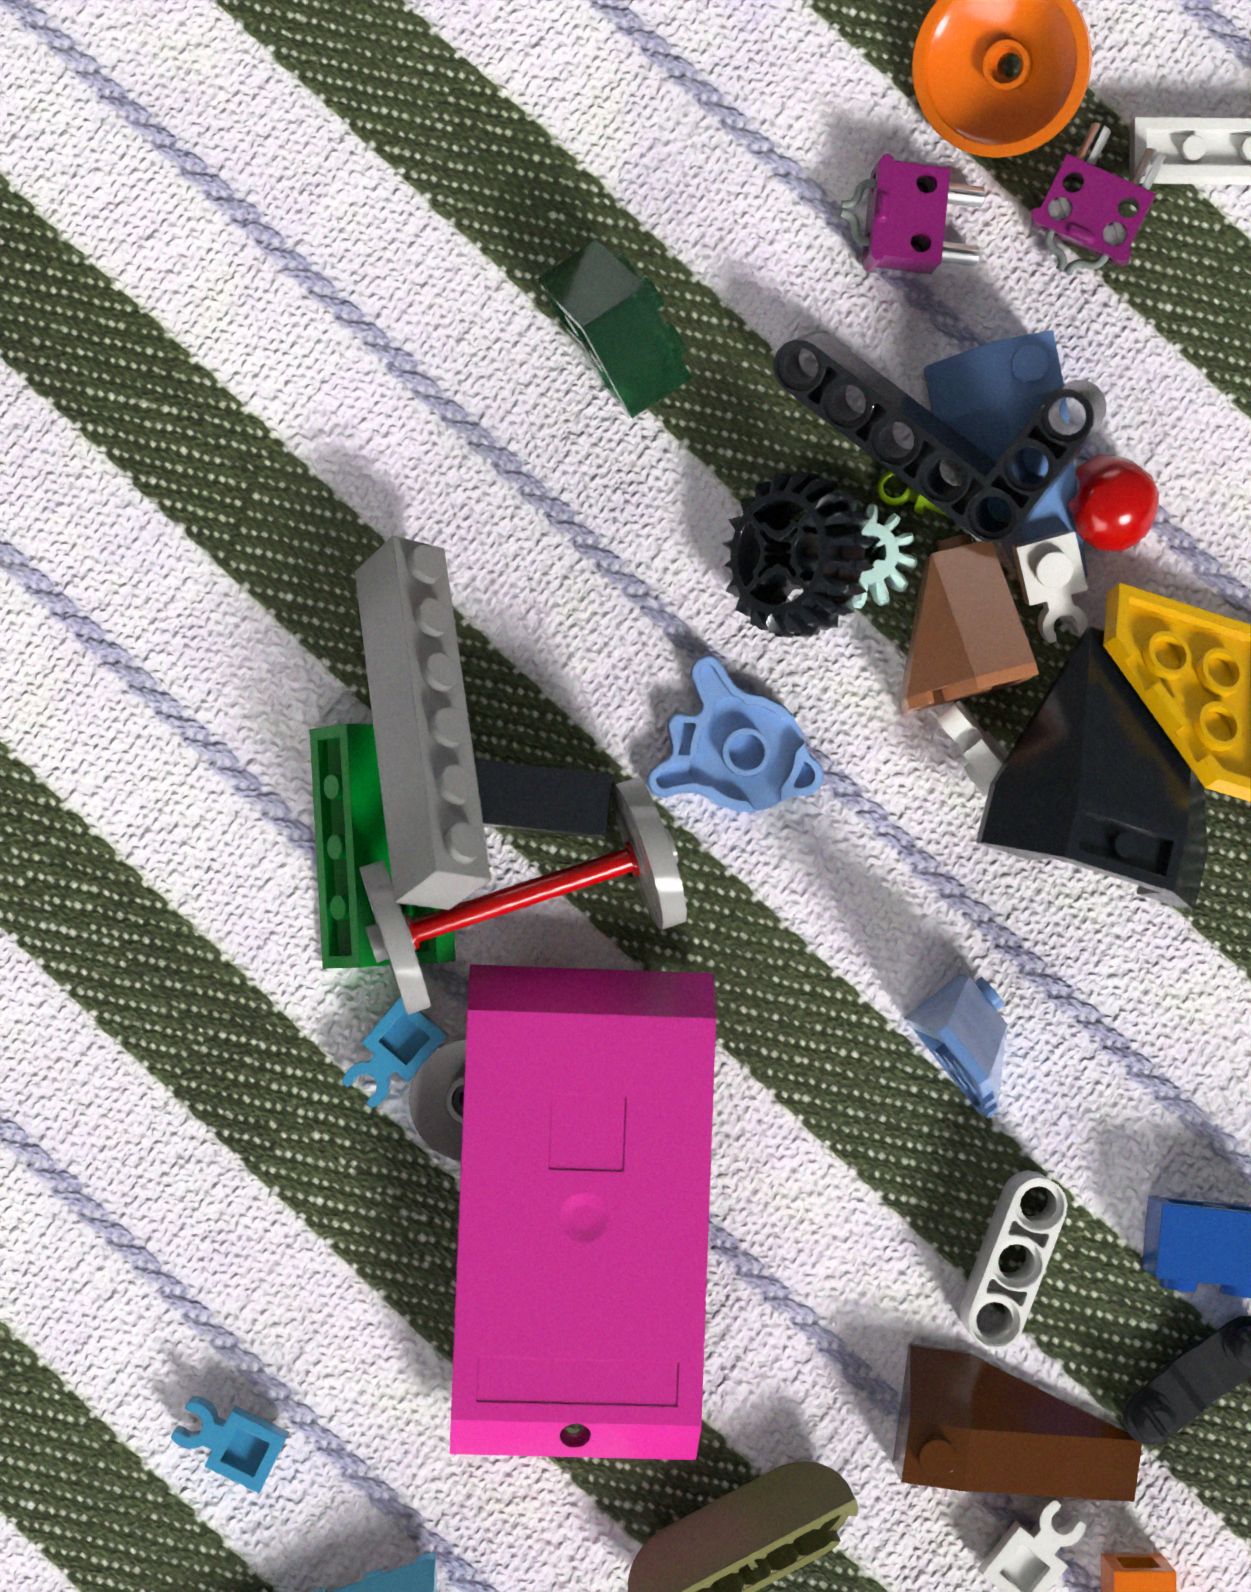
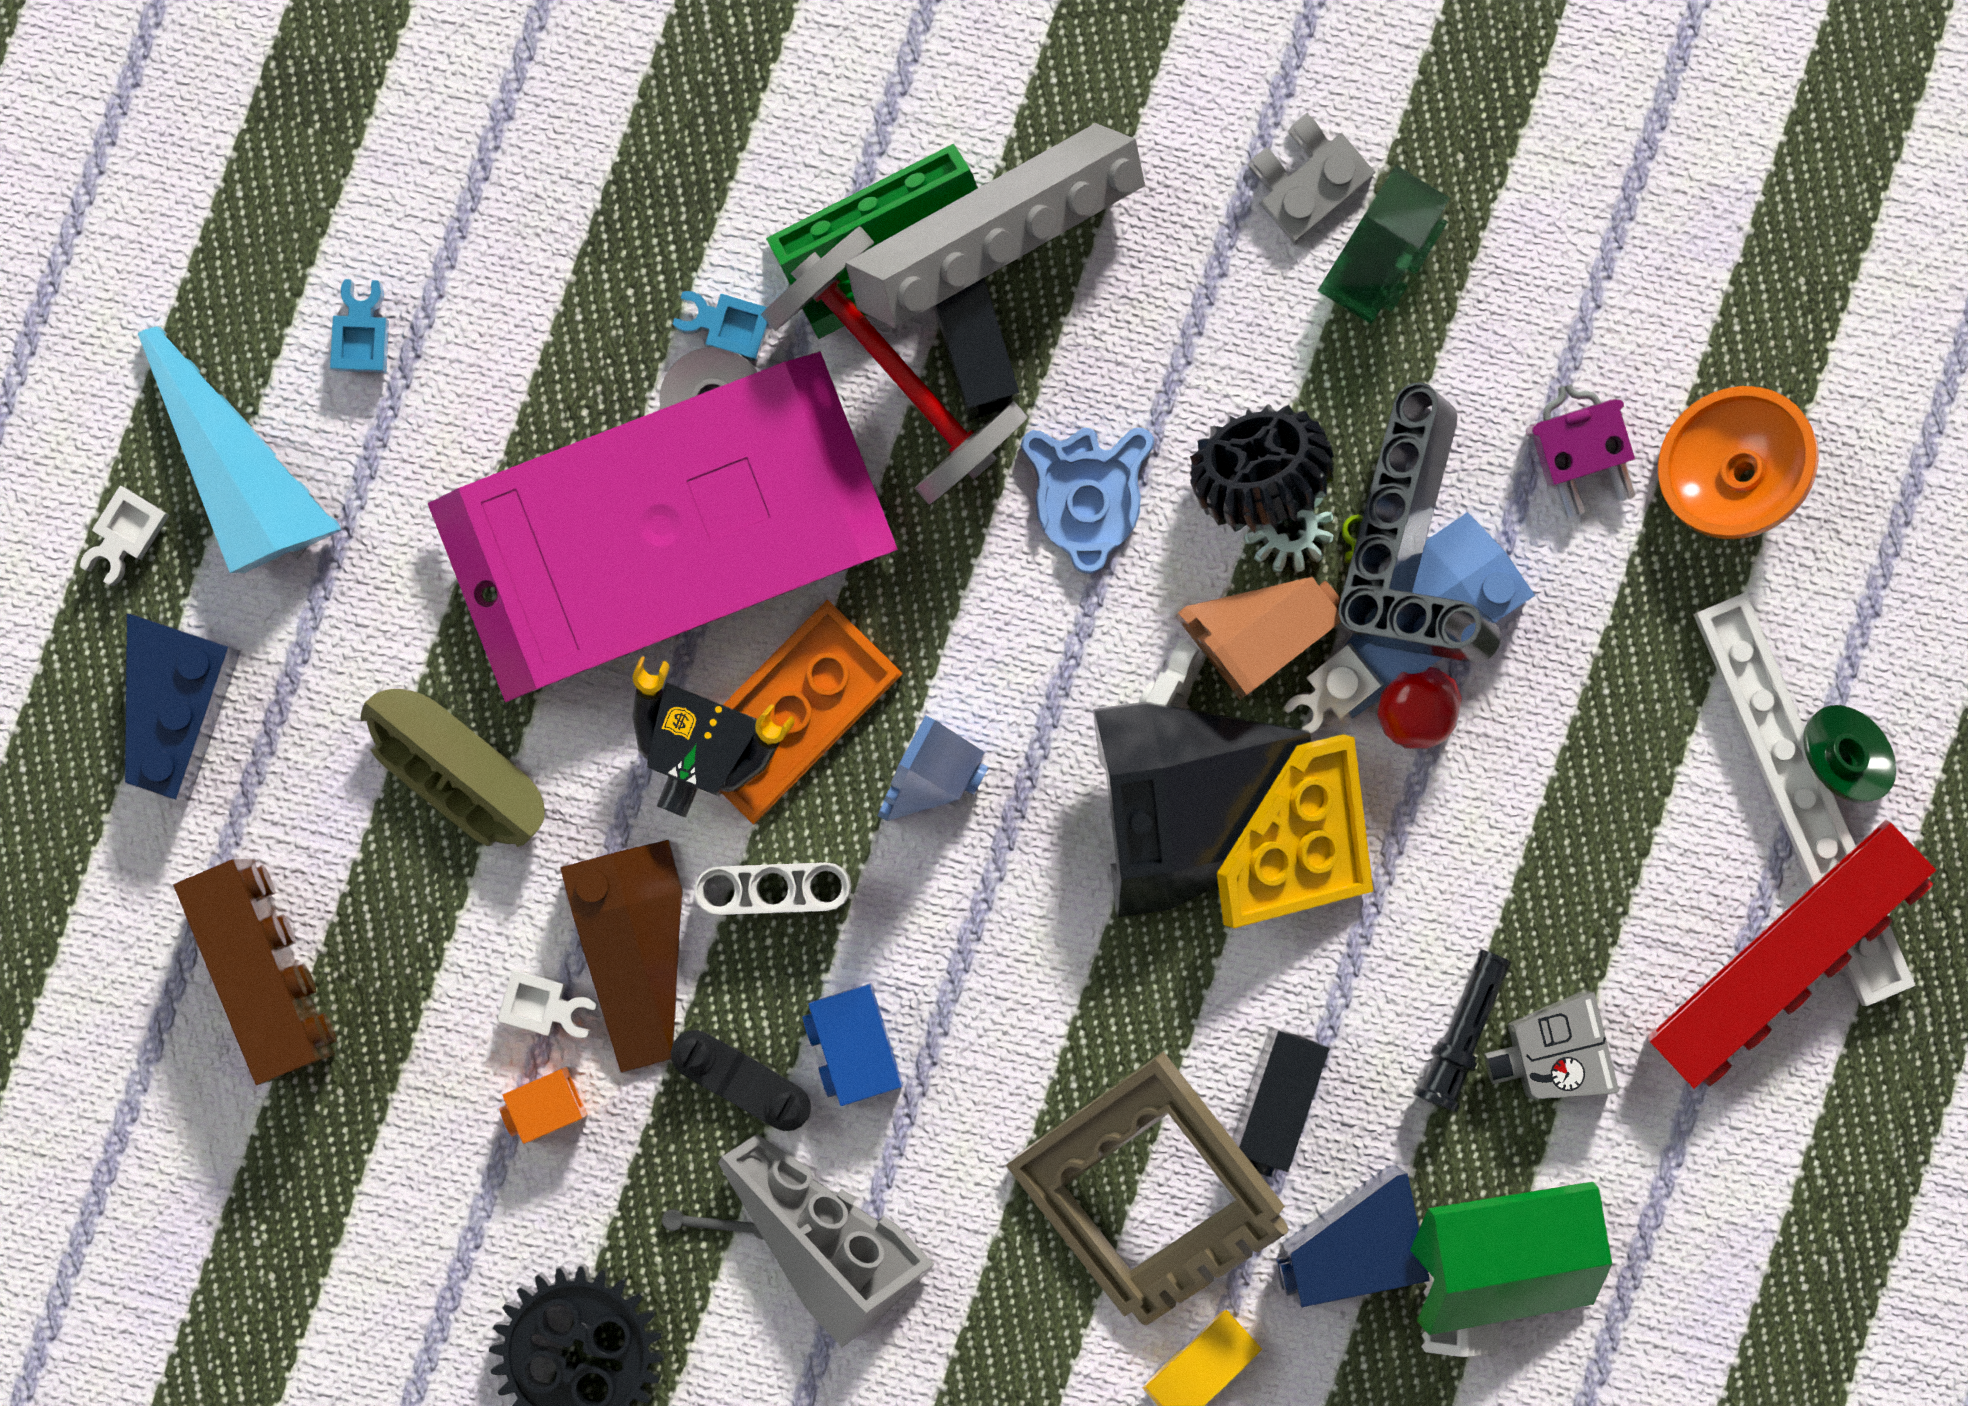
camera: 70 degrees right, 0 degrees up
(520, 371) = (1317, 186): none -> light grey plate
(827, 1273) = (698, 740): none -> black torso
(832, 1159) = (823, 680): none -> orange tile
(1091, 214) = (1650, 591): magenta piece -> none

